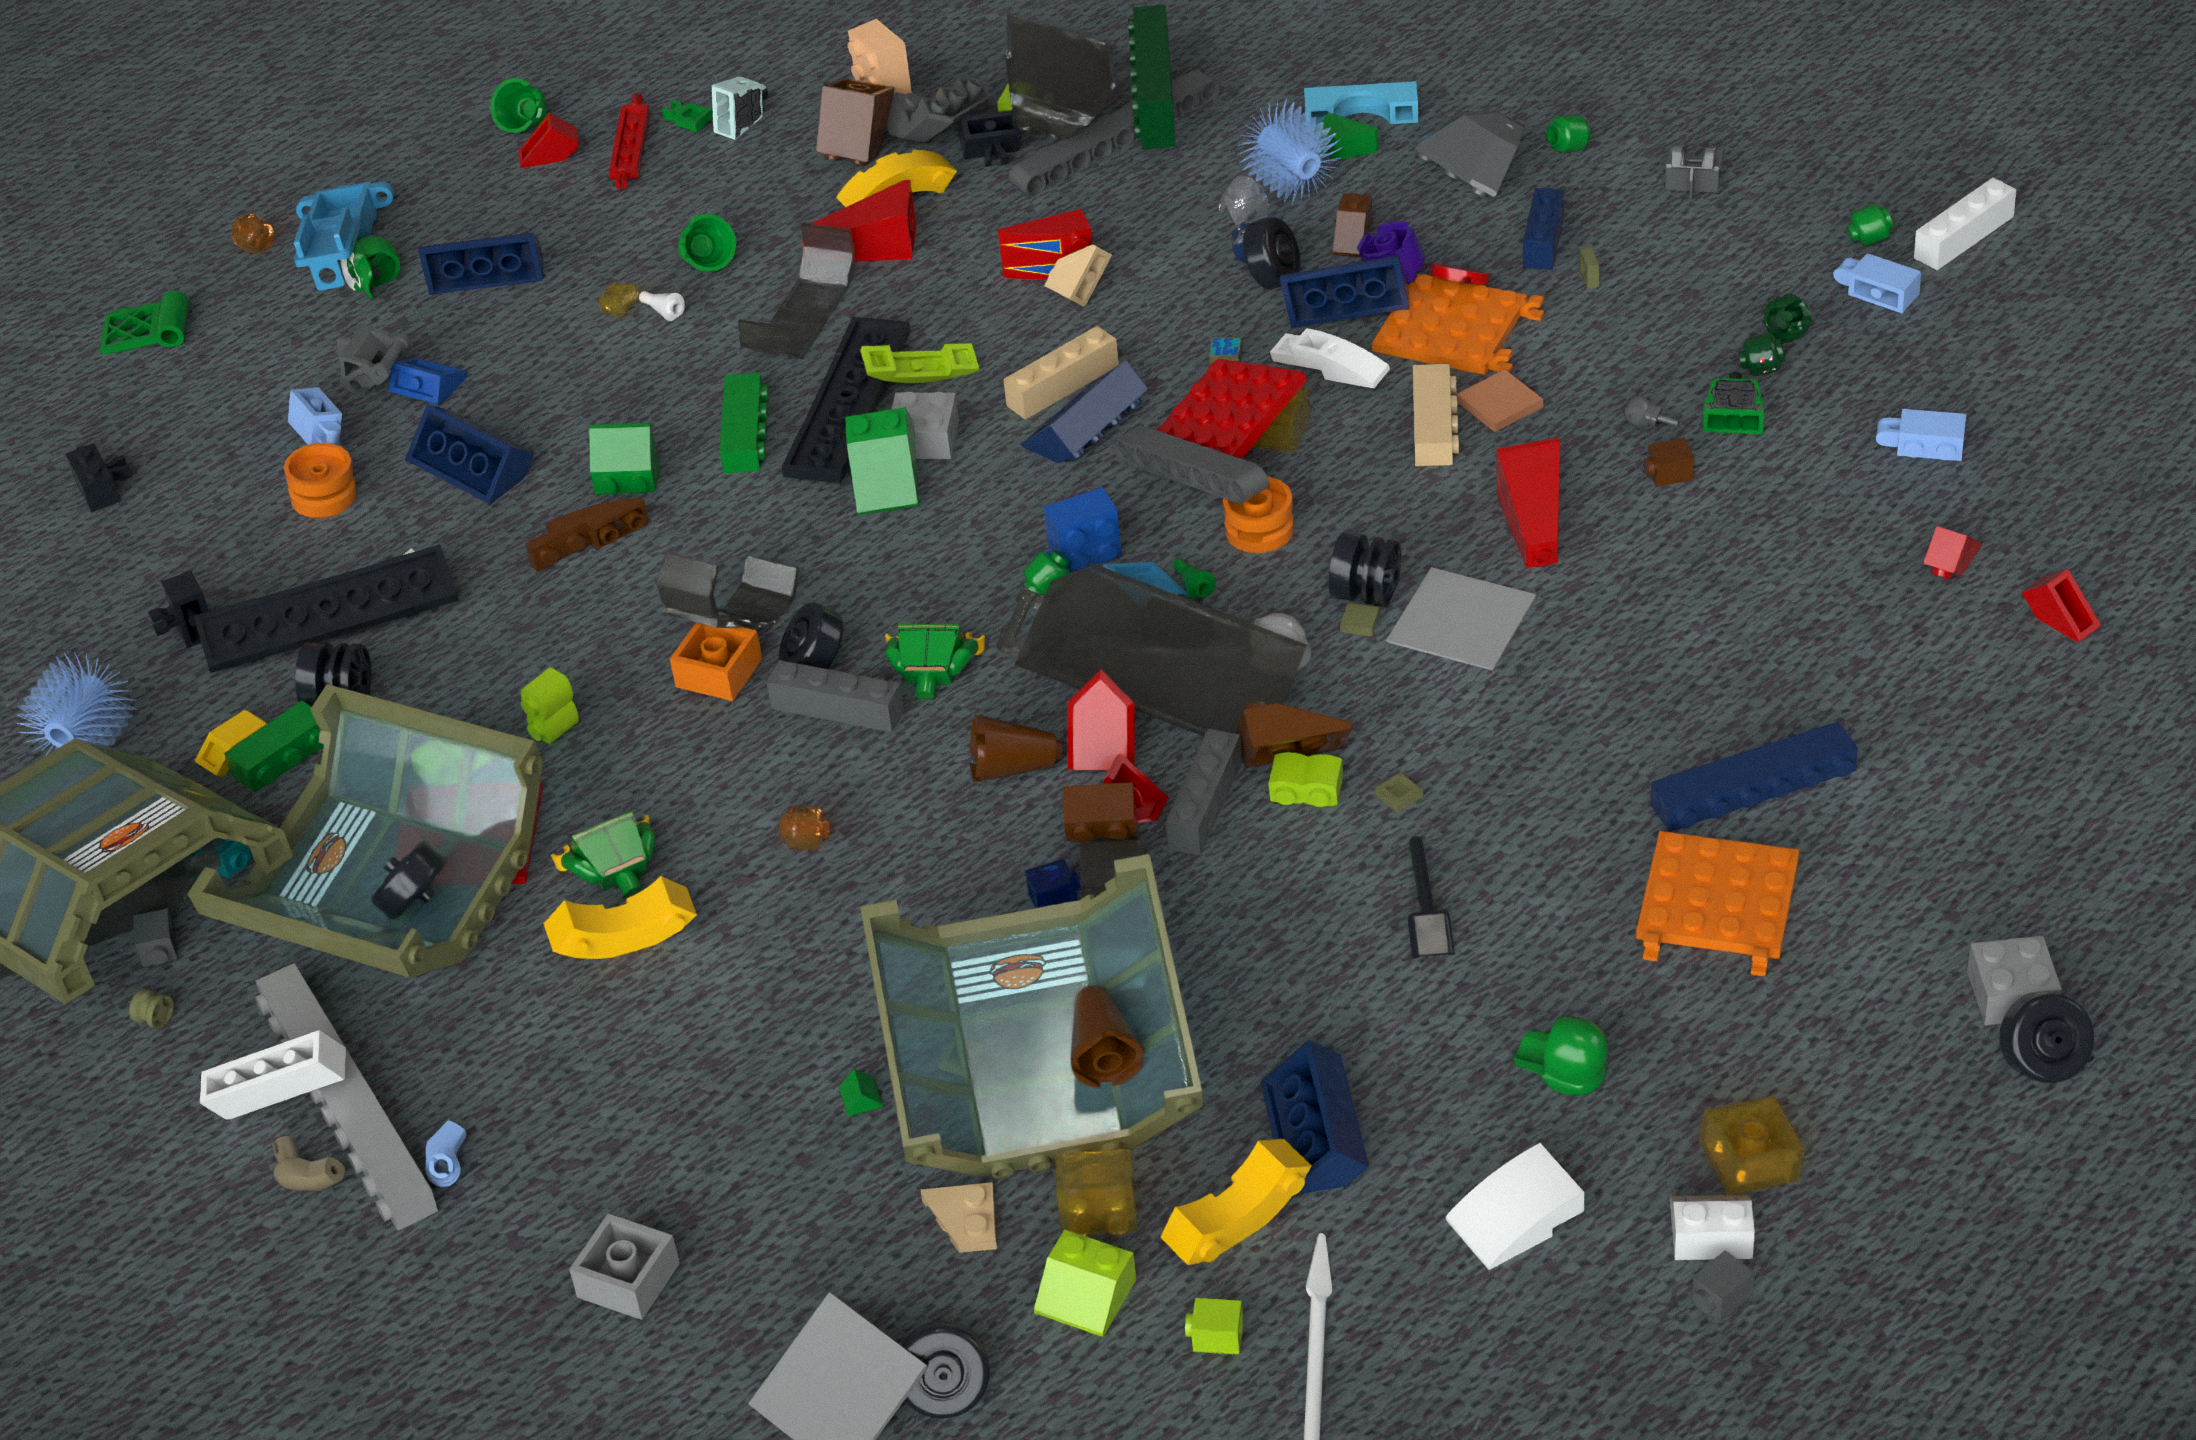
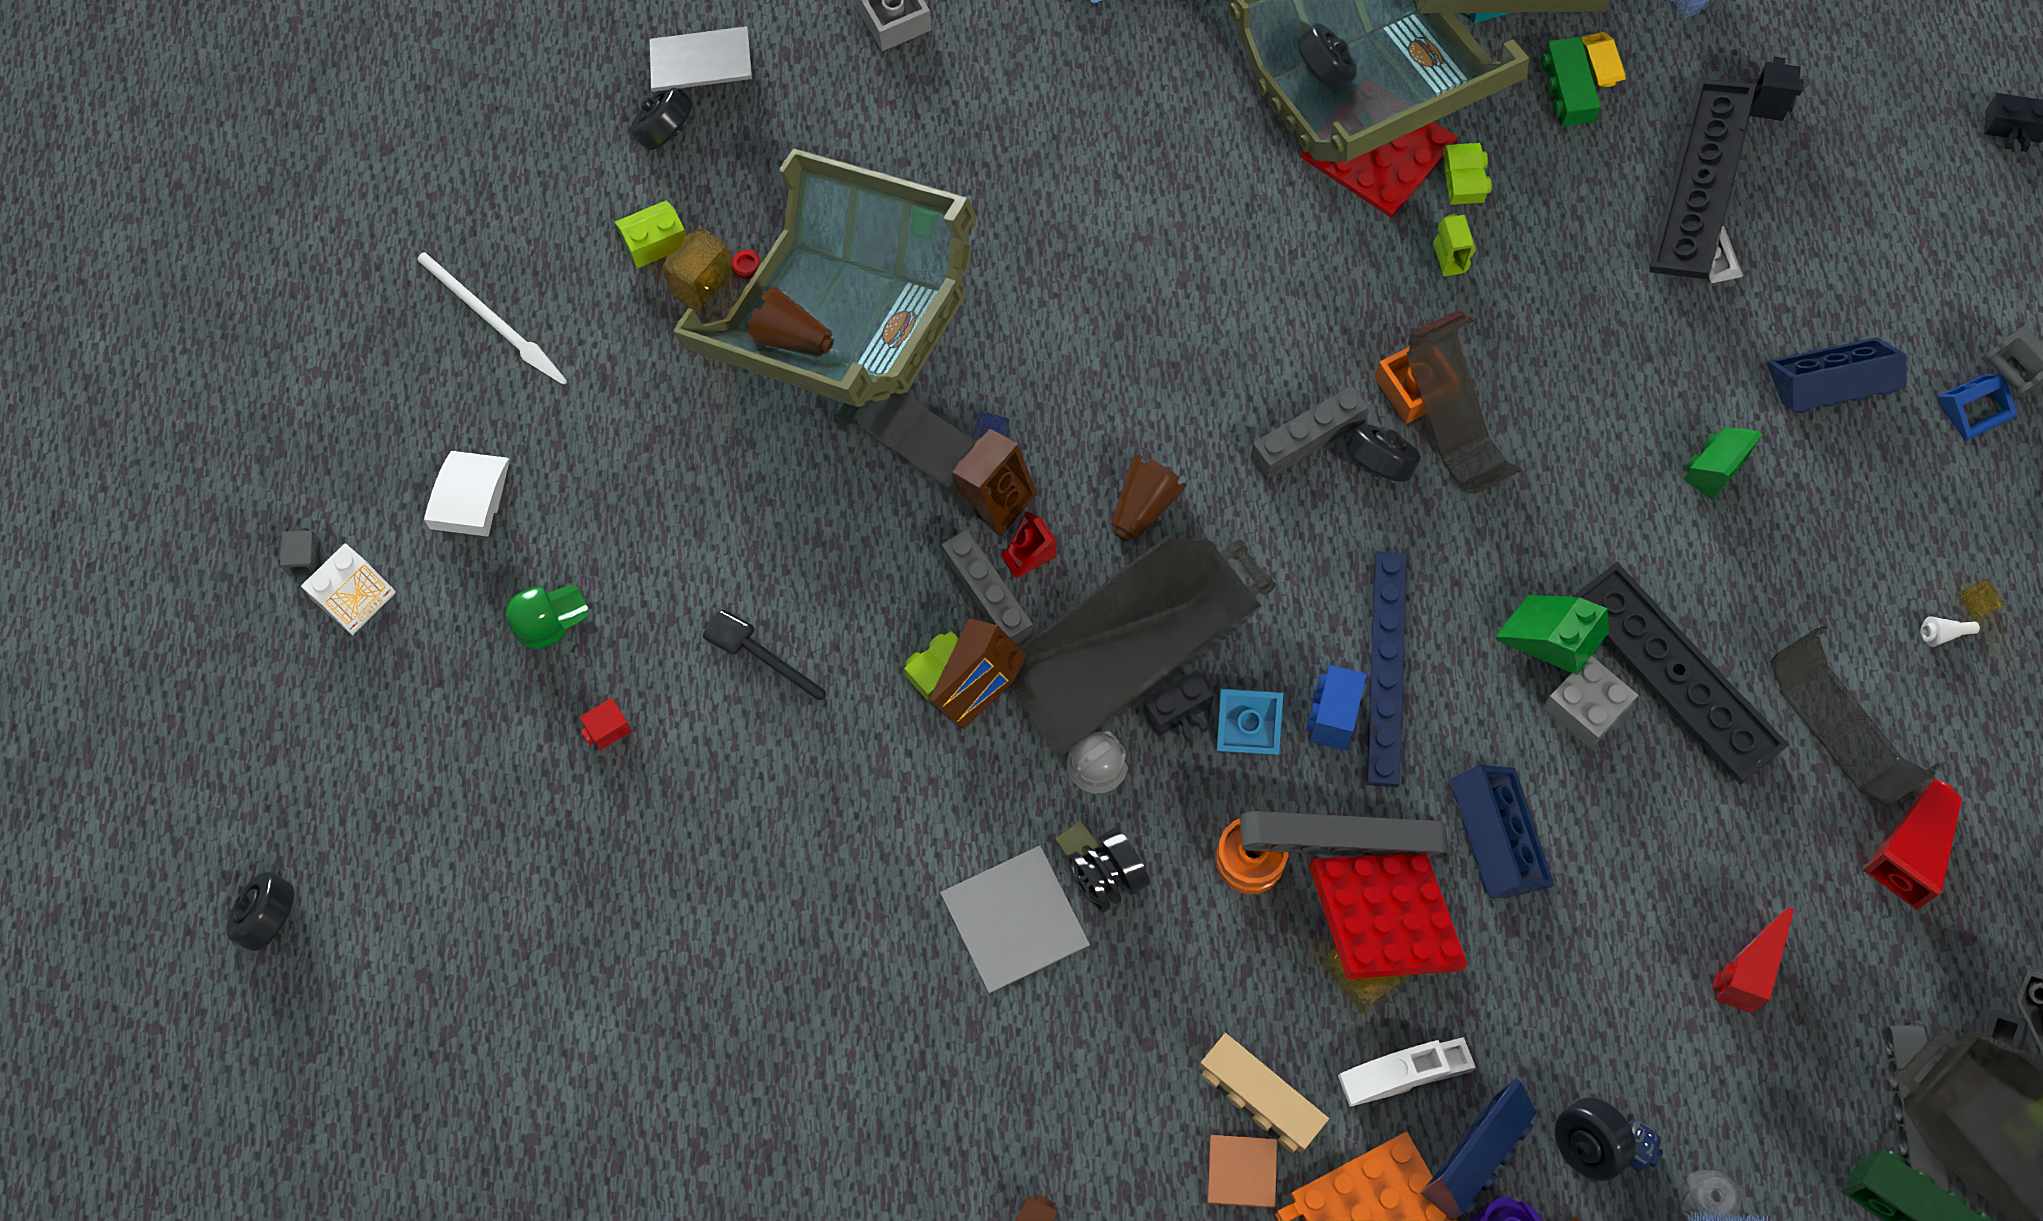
camera: 125 degrees right, 25 degrees up
(314, 416) = (1969, 290): light blue brick -> none
(320, 480) = (1880, 253): orange wheel -> none
(340, 666) = (1610, 137): black wheel -> none
(588, 526) = (1662, 393): reddish brown slope -> none
(611, 854) = (1266, 205): green torso -> none
(615, 931) = (1191, 176): yellow brick -> none
(707, 243) = (1999, 703): green helmet -> none
(743, 423) = (1713, 581): green brick -> none
(803, 828) = (1189, 330): clear orange head -> none
(919, 366) = (1679, 749): lime slope -> none
(924, 168) = (1983, 917): yellow brick -> none
(931, 654) = (1296, 517): green torso -> none
(965, 1214) = (763, 211): tan wing -> none
(978, 562) = (1386, 670): none -> dark blue plate
(1042, 1191) = (745, 264): none -> red tile
(1044, 569) = (1316, 655): green head -> none
(1061, 372) = (1573, 852): tan brick -> none
(1078, 273) = (1697, 955): tan slope -> none
(1100, 725) = (1102, 560): tile -> none
(1196, 581) = (1225, 761): green cone -> none
(1215, 1325) = (552, 272): lime brick -> none
(1225, 348) = (1503, 1012): tile -> none
(1258, 1193) = (619, 345): yellow brick -> none
(1315, 1114) = (642, 437): dark blue slope -> none
(1399, 792) = (876, 722): olive tile -> none
(1530, 498) = (1076, 1063): red slope -> none
(1610, 945) = (604, 725): none -> red brick
(1718, 897) = (583, 838): orange plate -> none
(1751, 1145) = (365, 650): clear yellow brick -> none
(1753, 776) = (653, 959): dark blue brick -> none
(2008, 971) = (321, 941): light grey brick -> none

